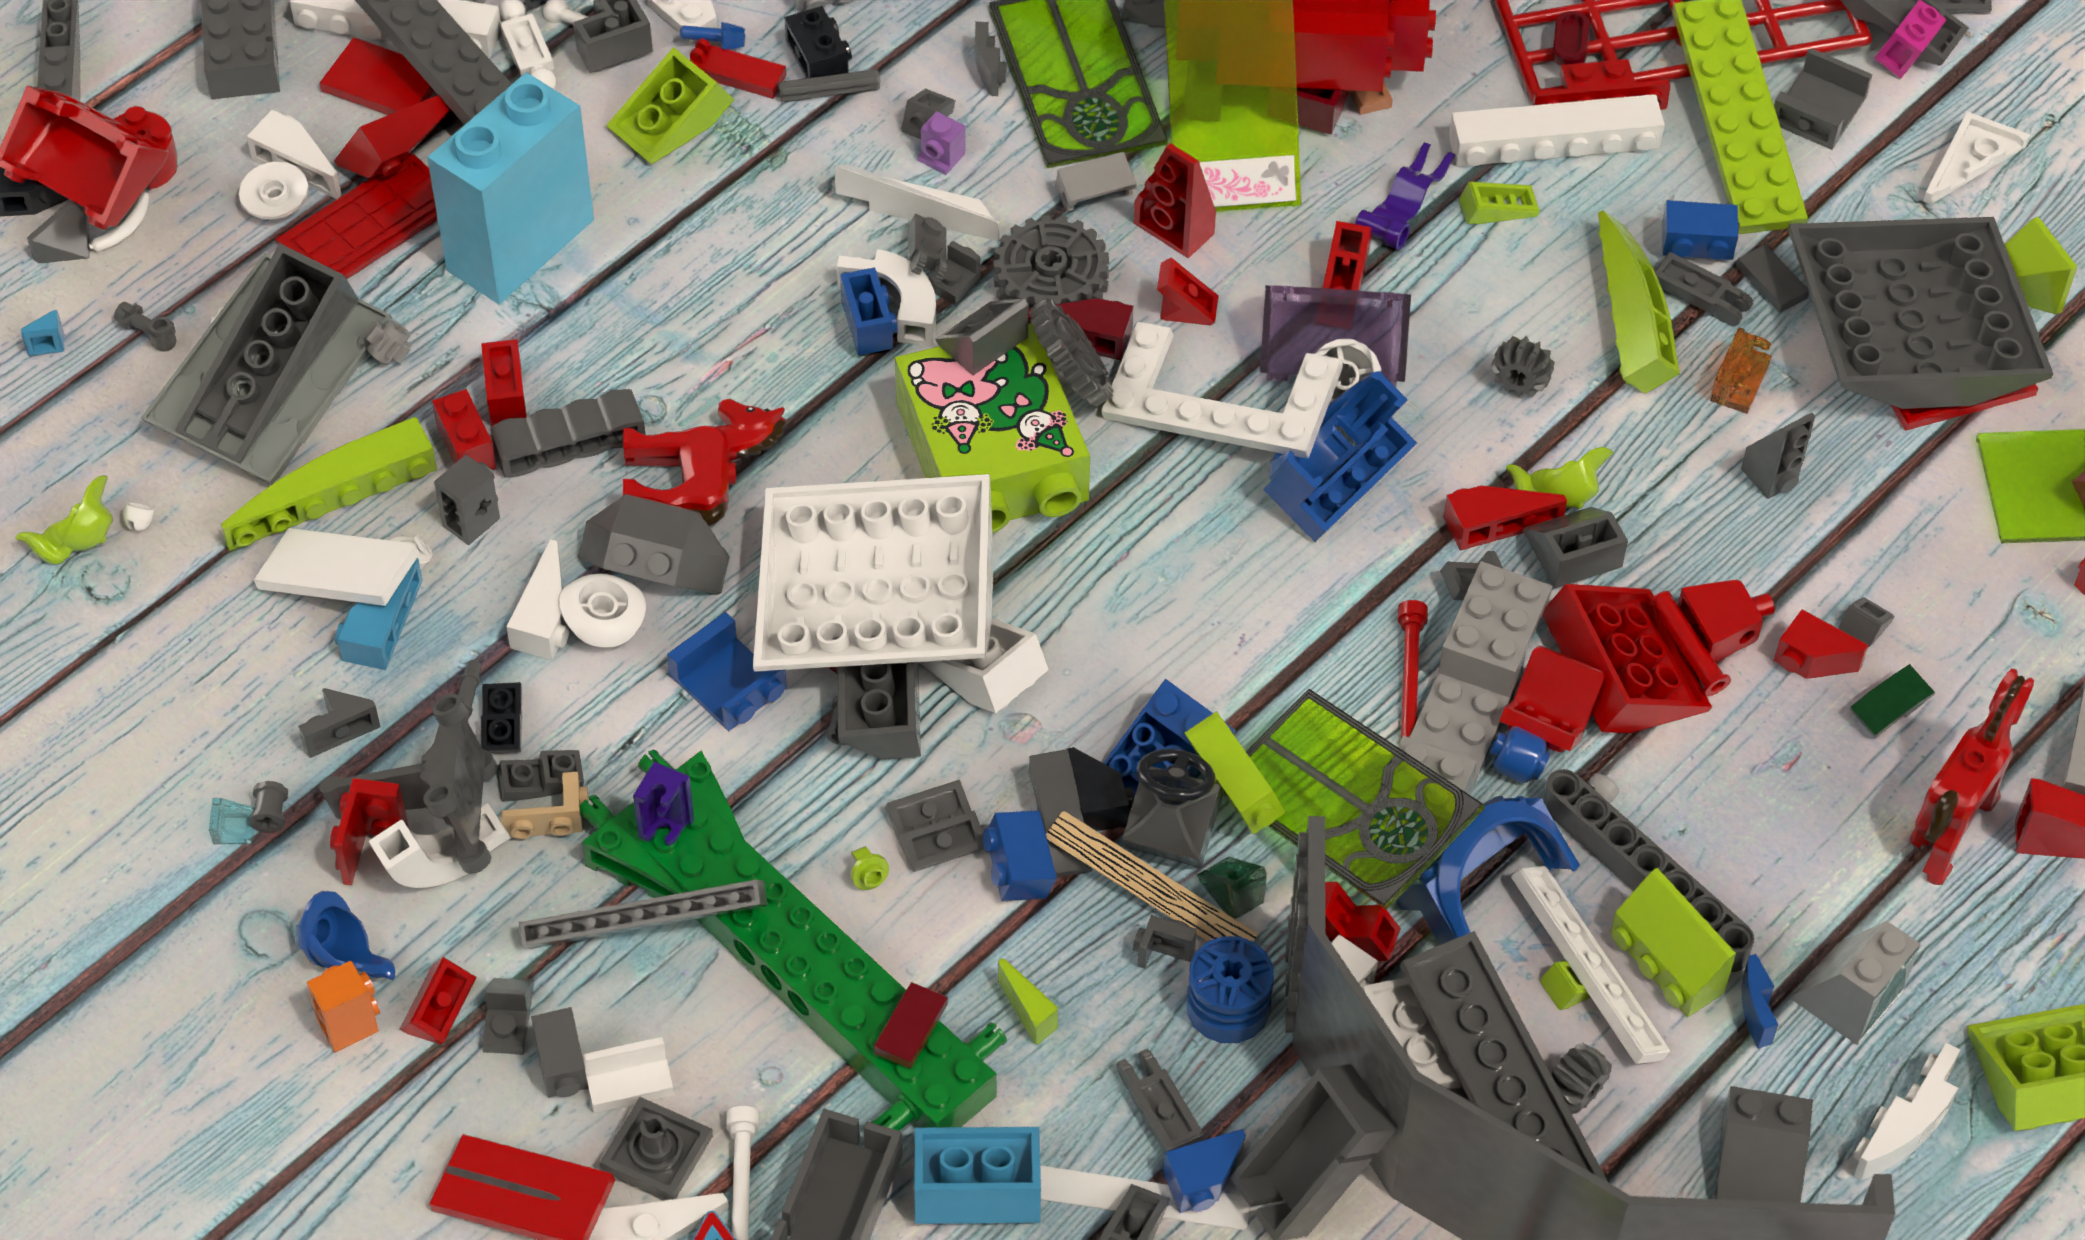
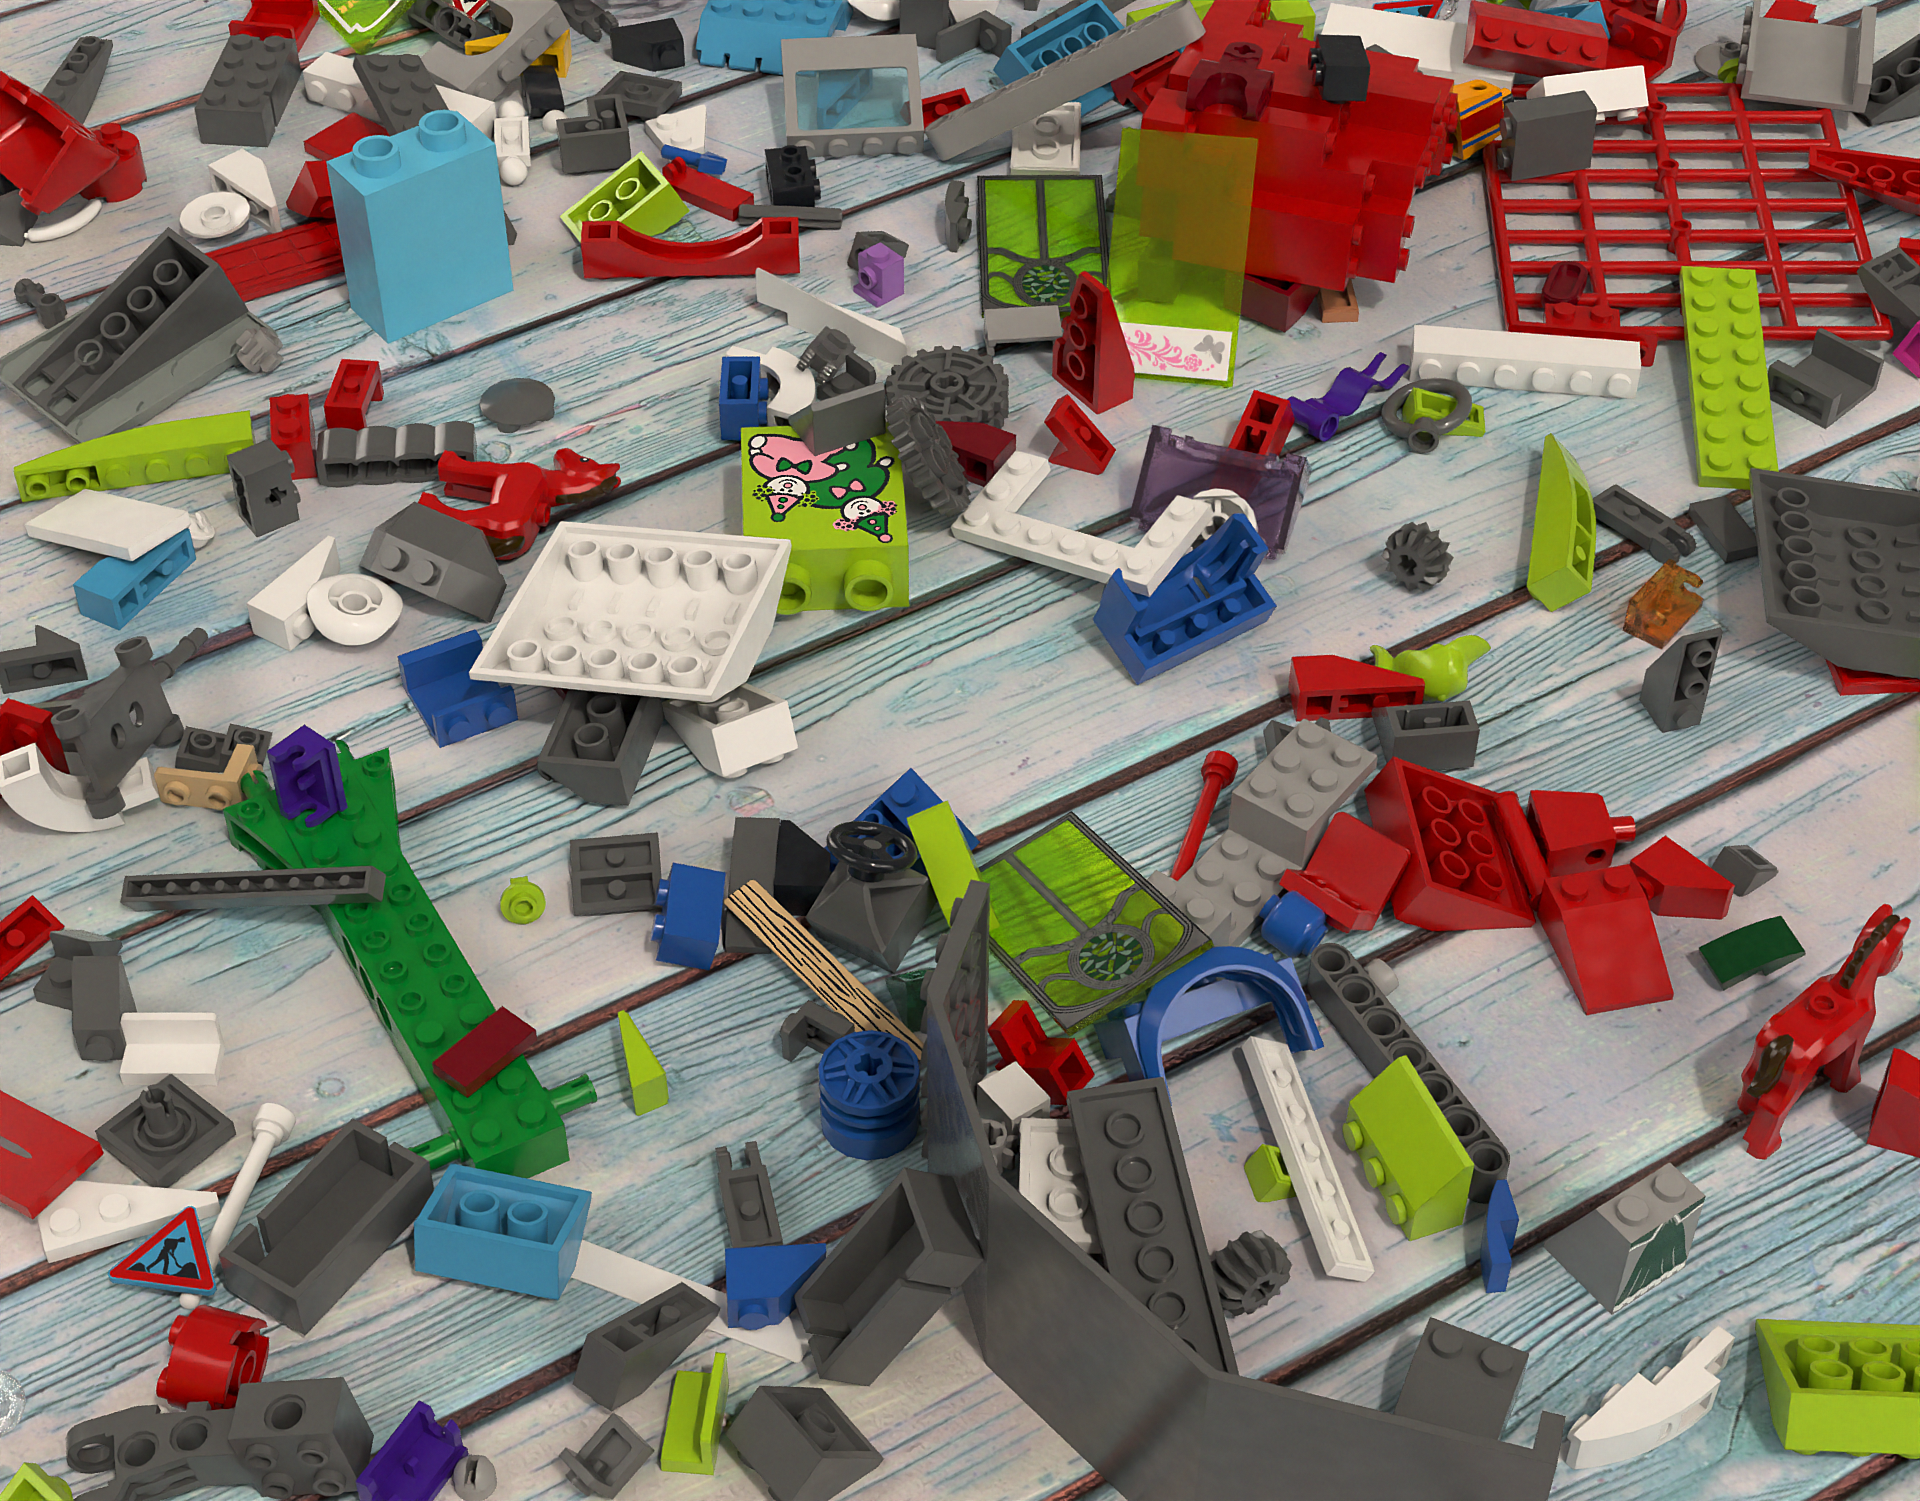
camera: 15 degrees right, 10 degrees down
(501, 717) = (211, 690): black slope -> none
(653, 351) = (517, 403): none -> dark grey dish
(690, 162) = (618, 251): none -> red arch
(1489, 226) = (1428, 440): none -> dark grey piece
(1700, 229) = (1654, 468): blue brick -> none
(1773, 714) = (1605, 938): none -> red slope

